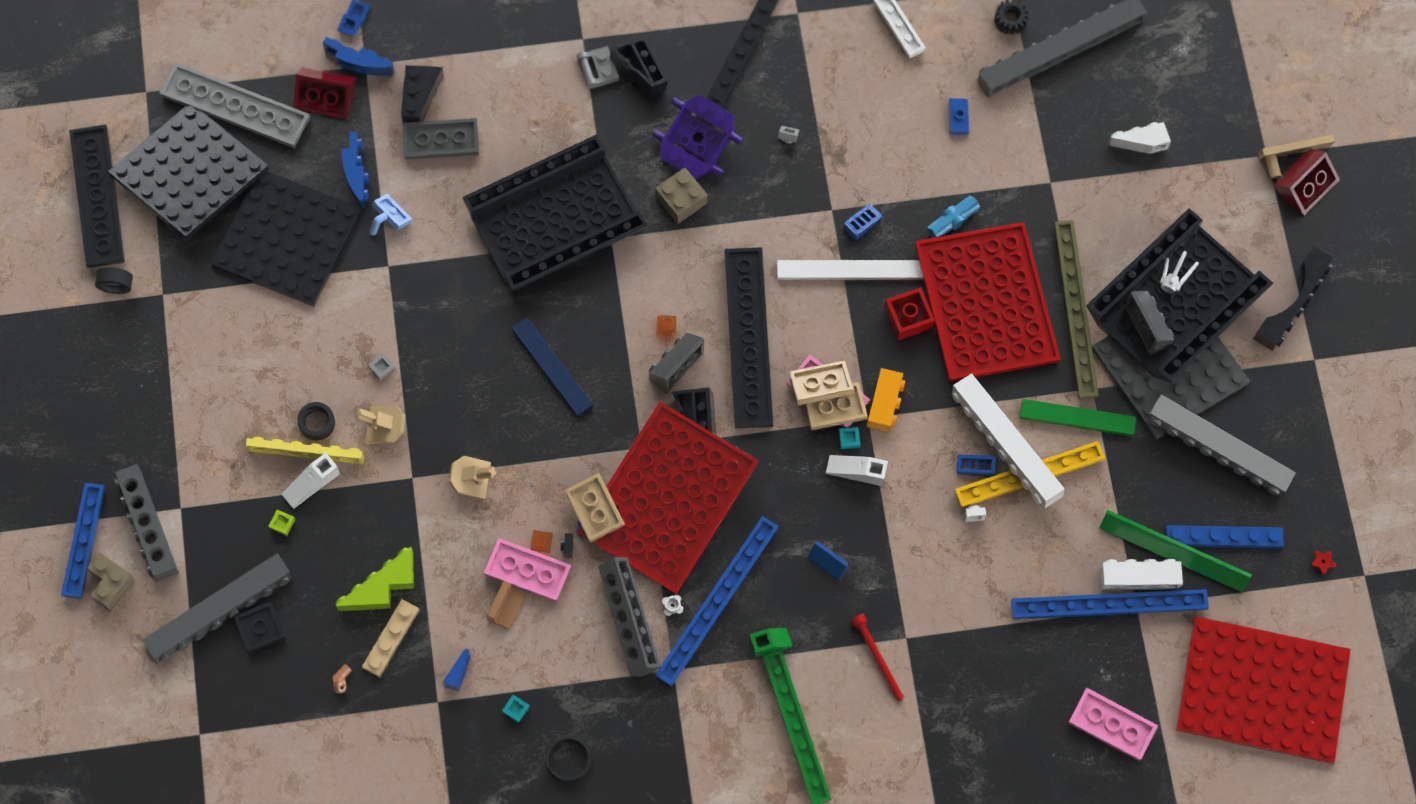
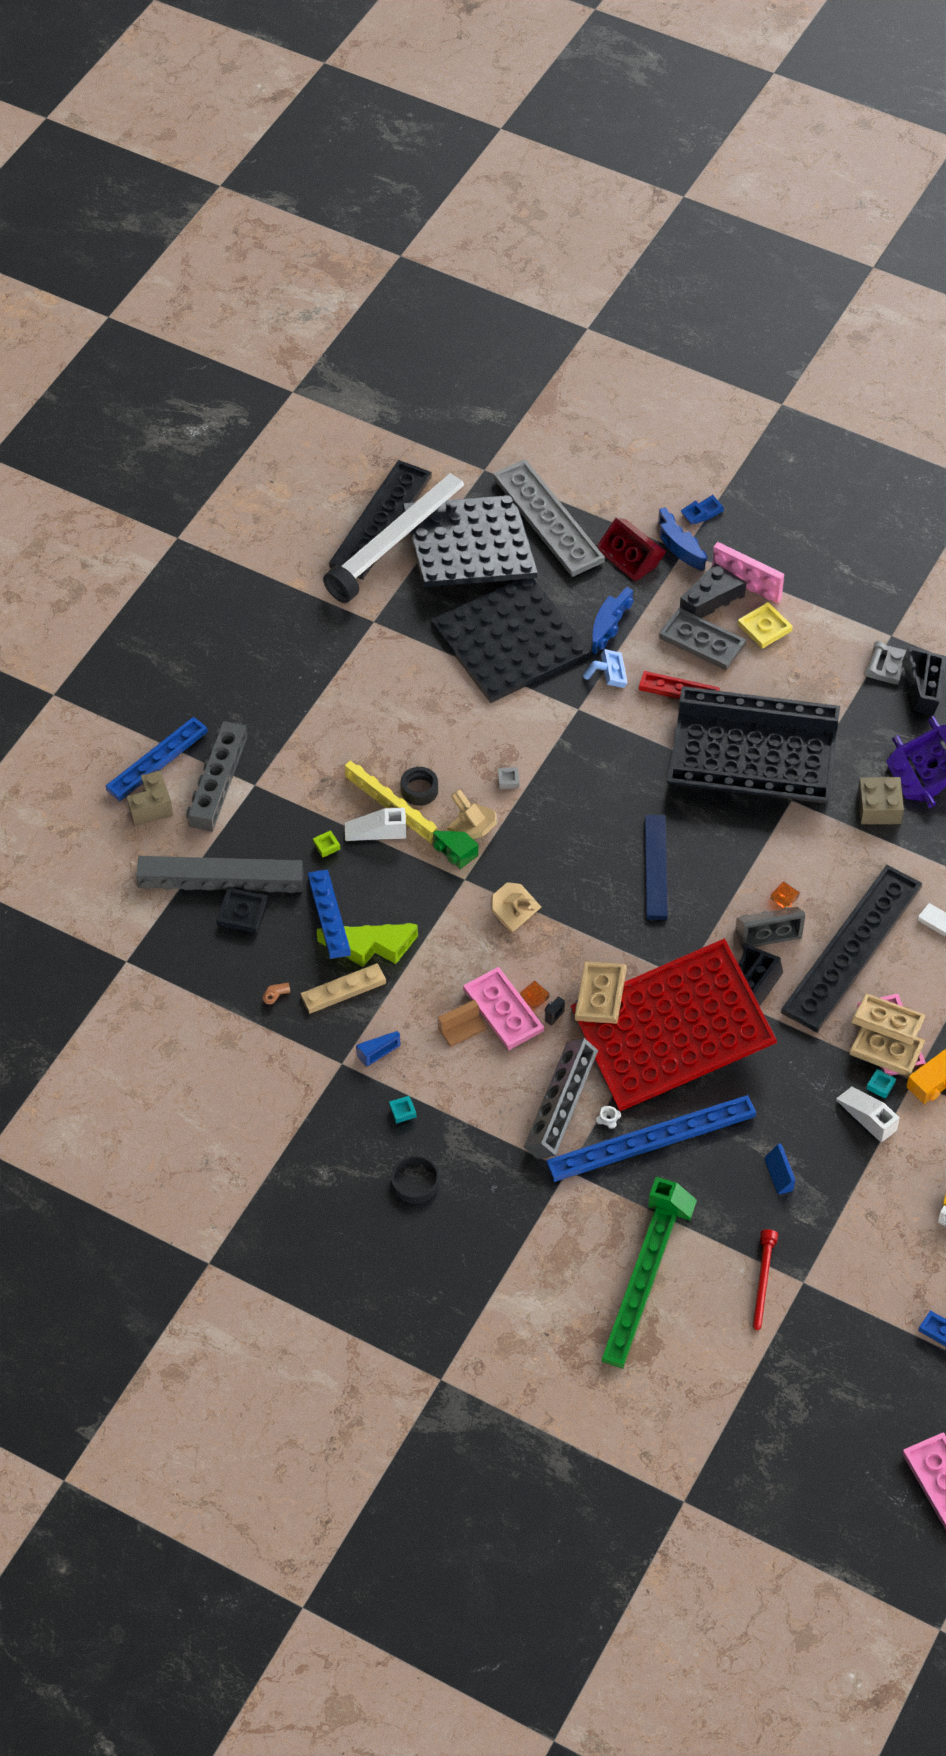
camera: 40 degrees right, 15 degrees down
(126, 195) = (403, 525): none -> white tile
(335, 585) = (329, 914): none -> blue plate
(386, 455) = (456, 846): none -> green slope
(438, 56) = (758, 576): none -> bright pink plate
(450, 197) = (668, 685): none -> red plate
(481, 94) = (765, 625): none -> light yellow plate

